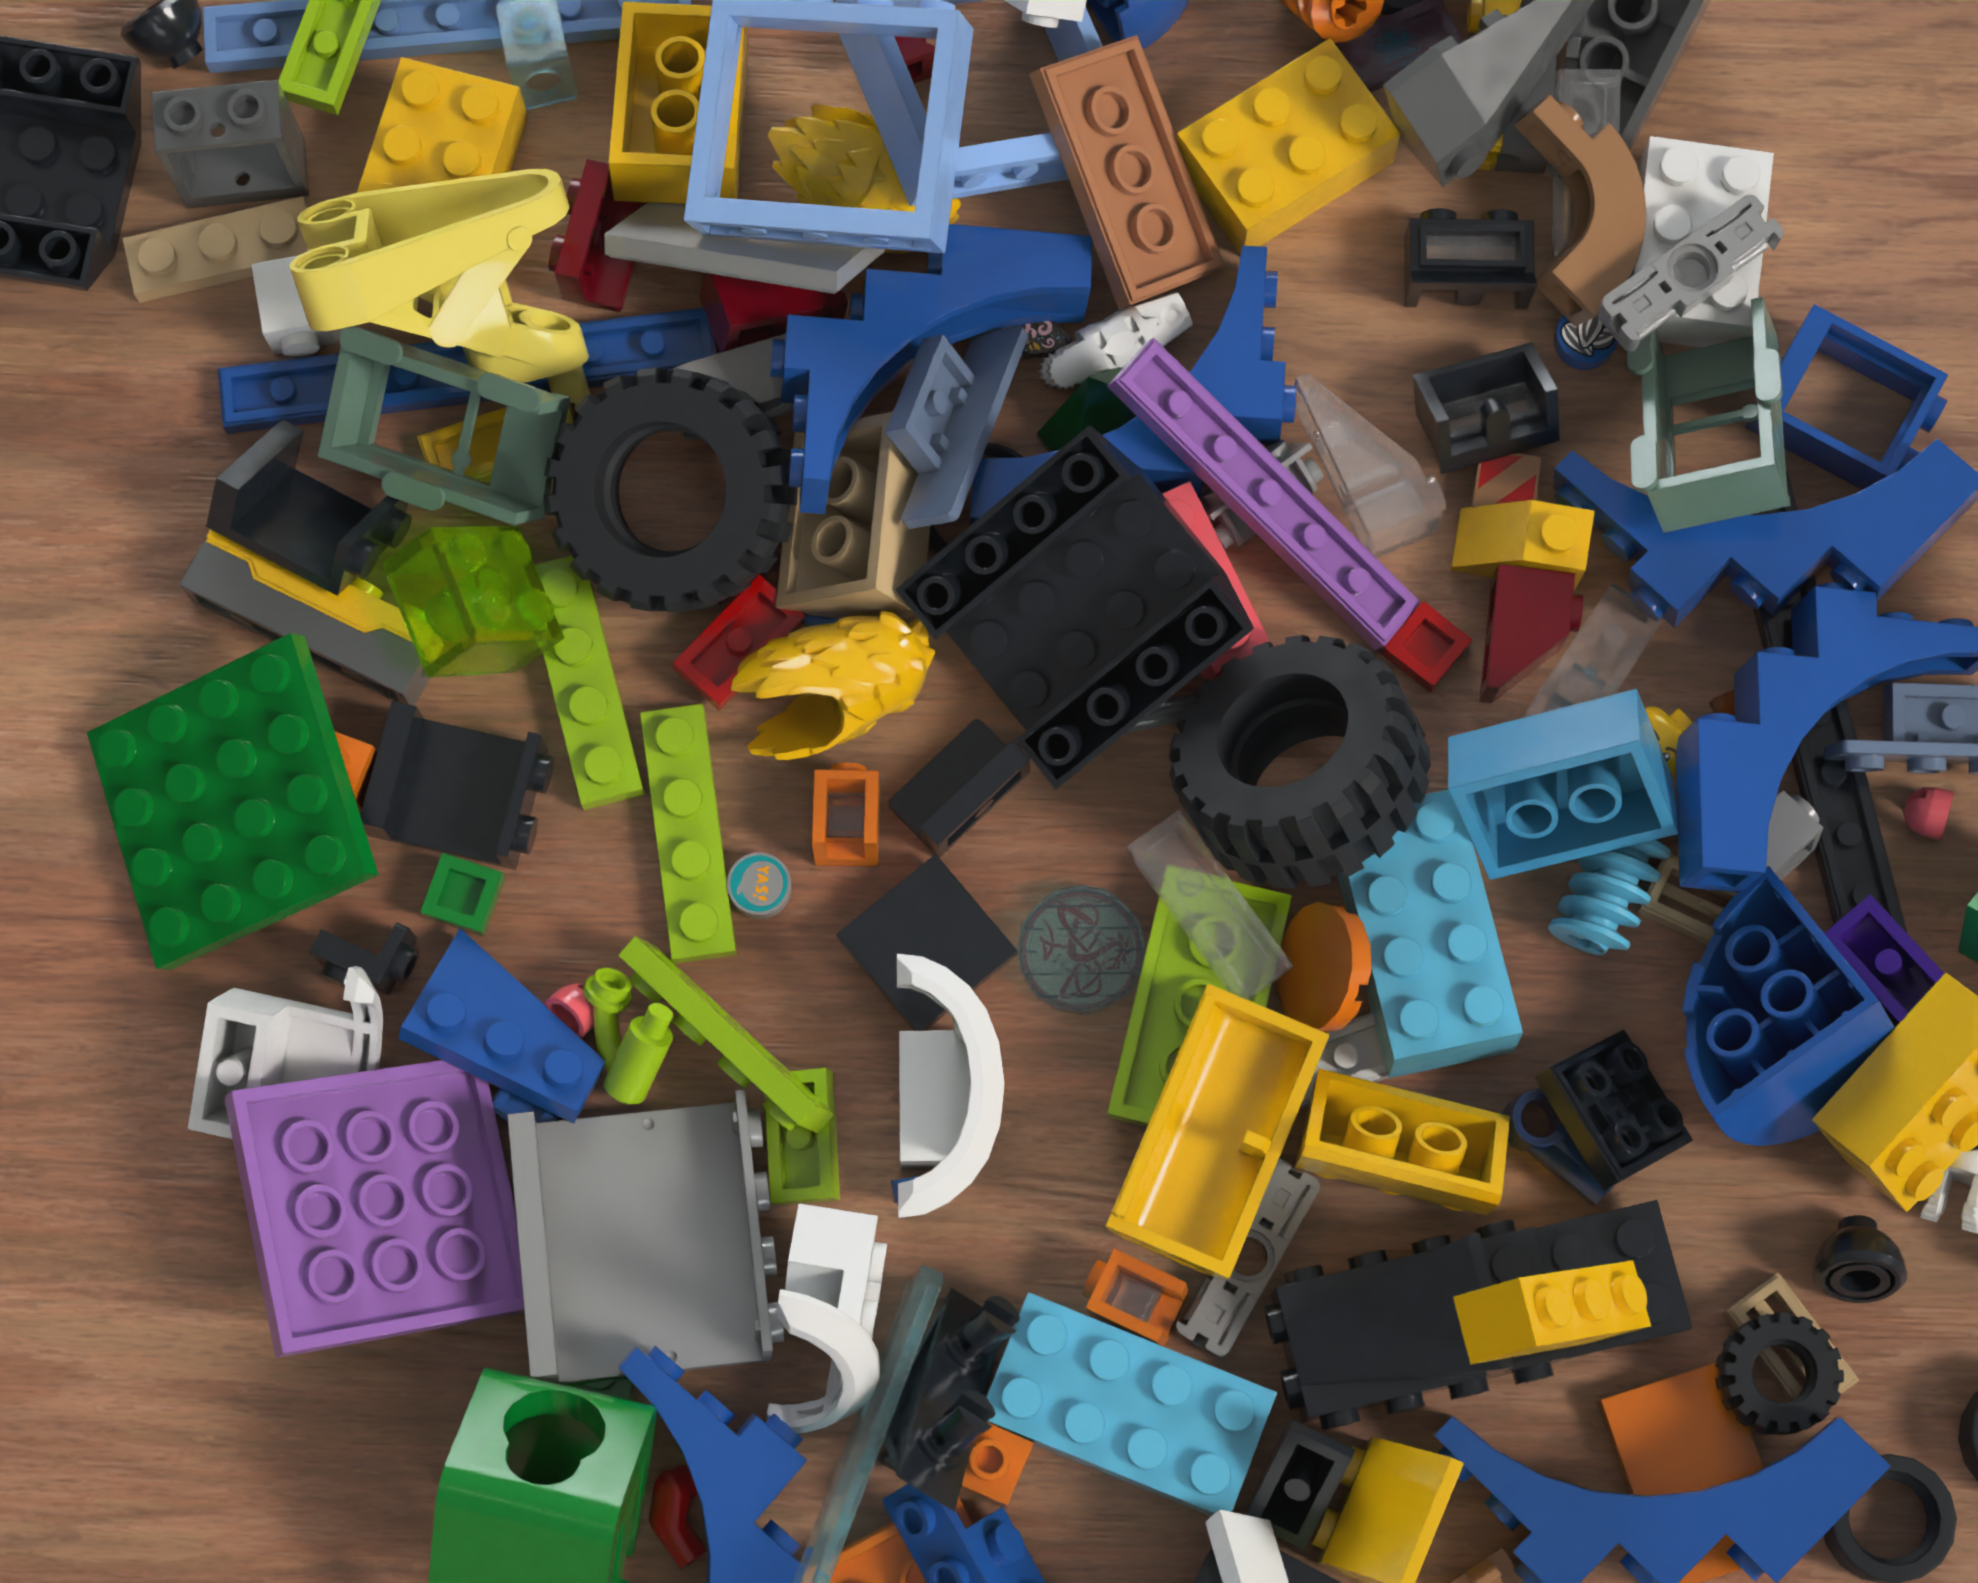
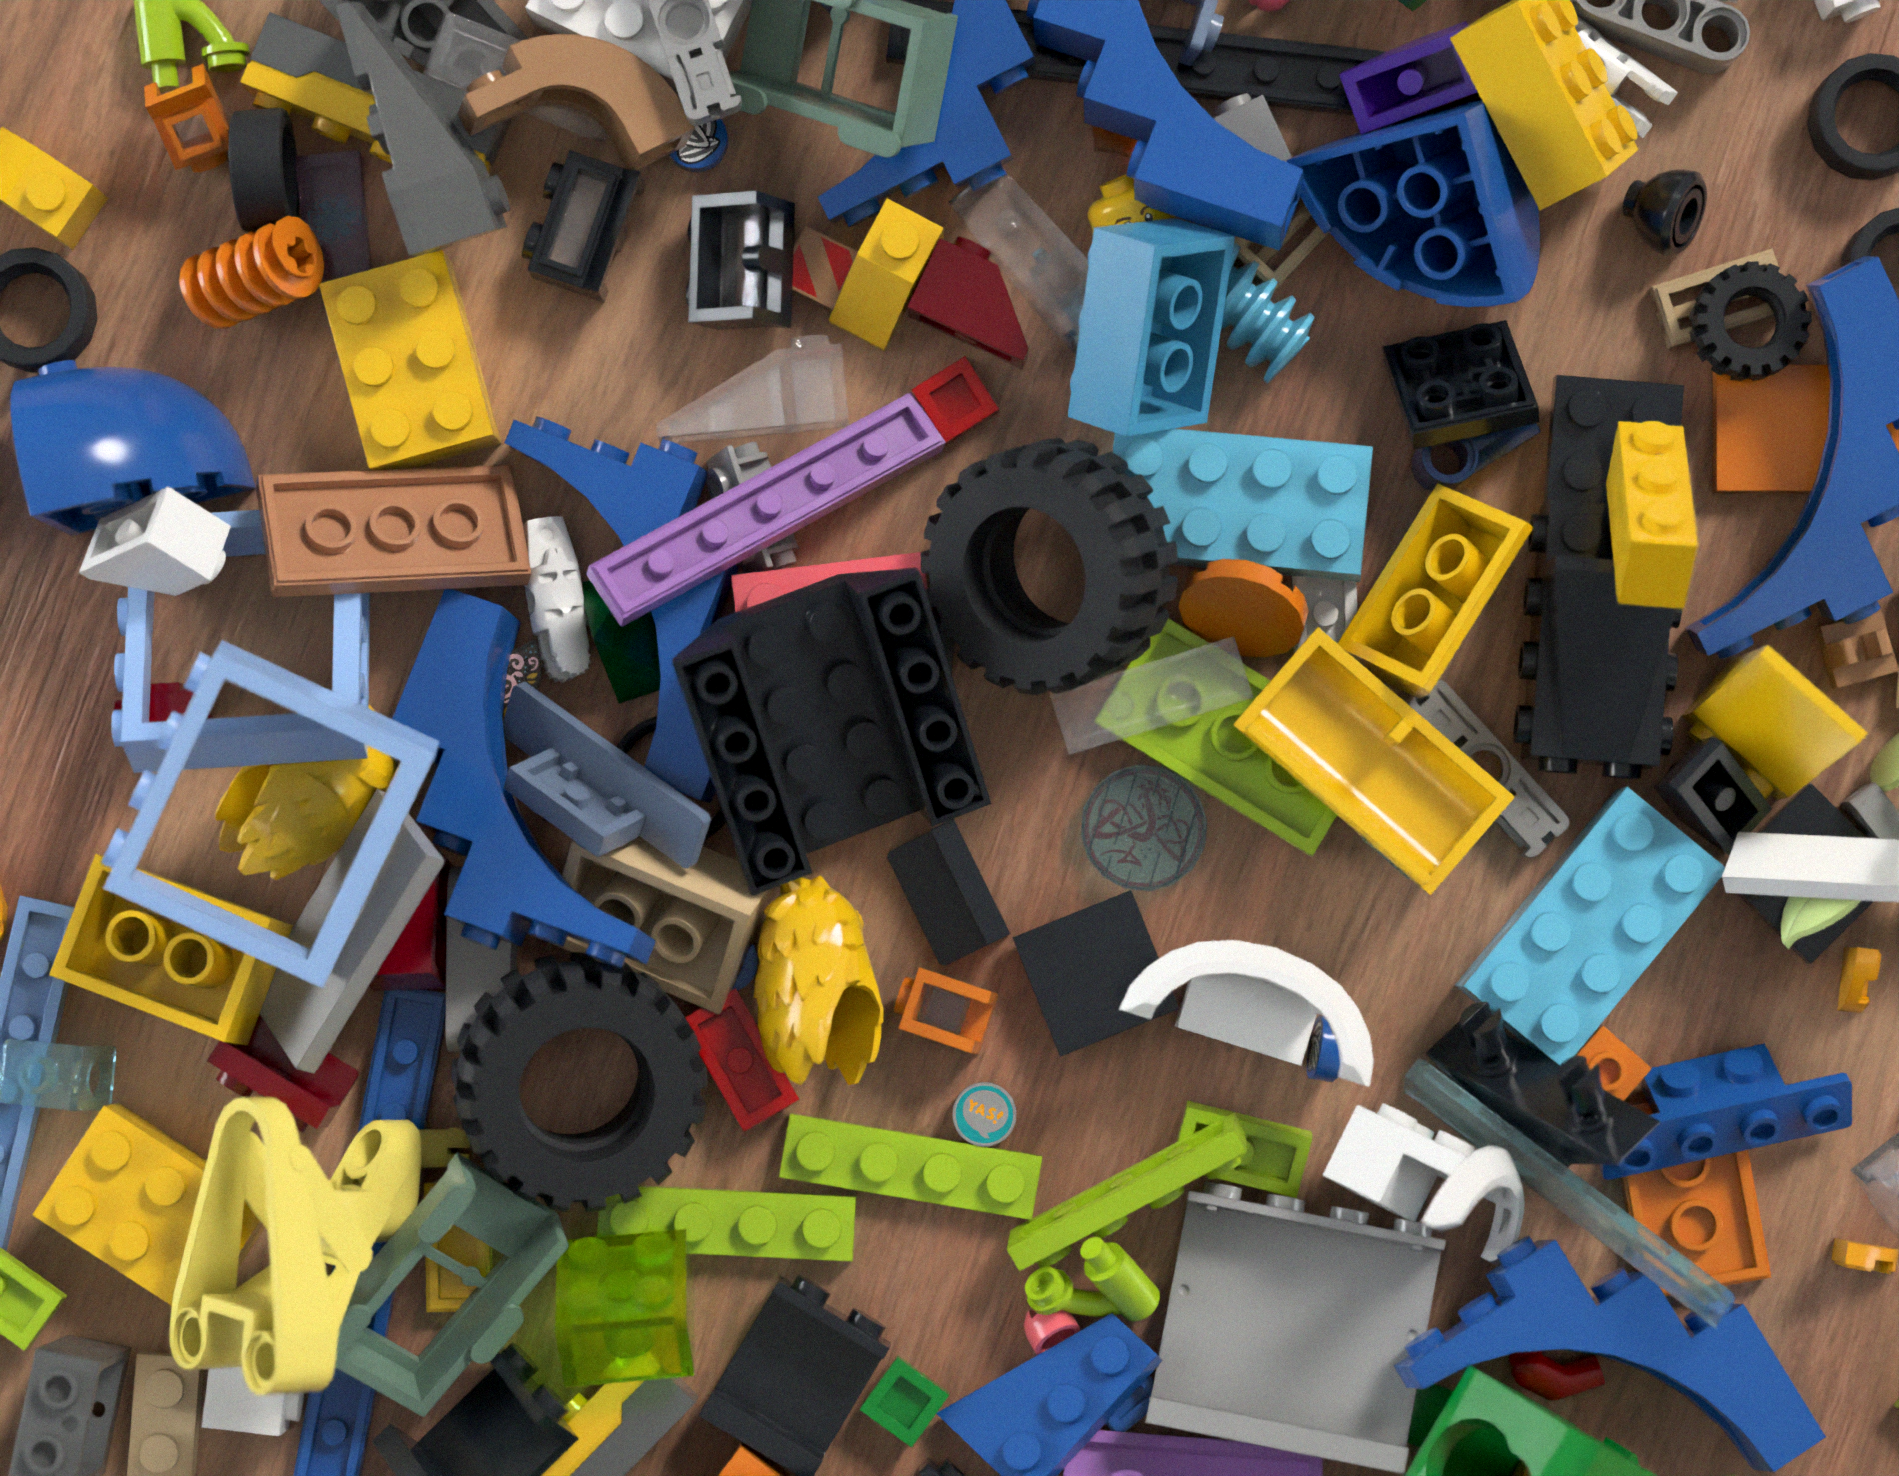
camera: 70 degrees left, 10 degrees up
(1135, 1297) = (1491, 887): orange window -> none

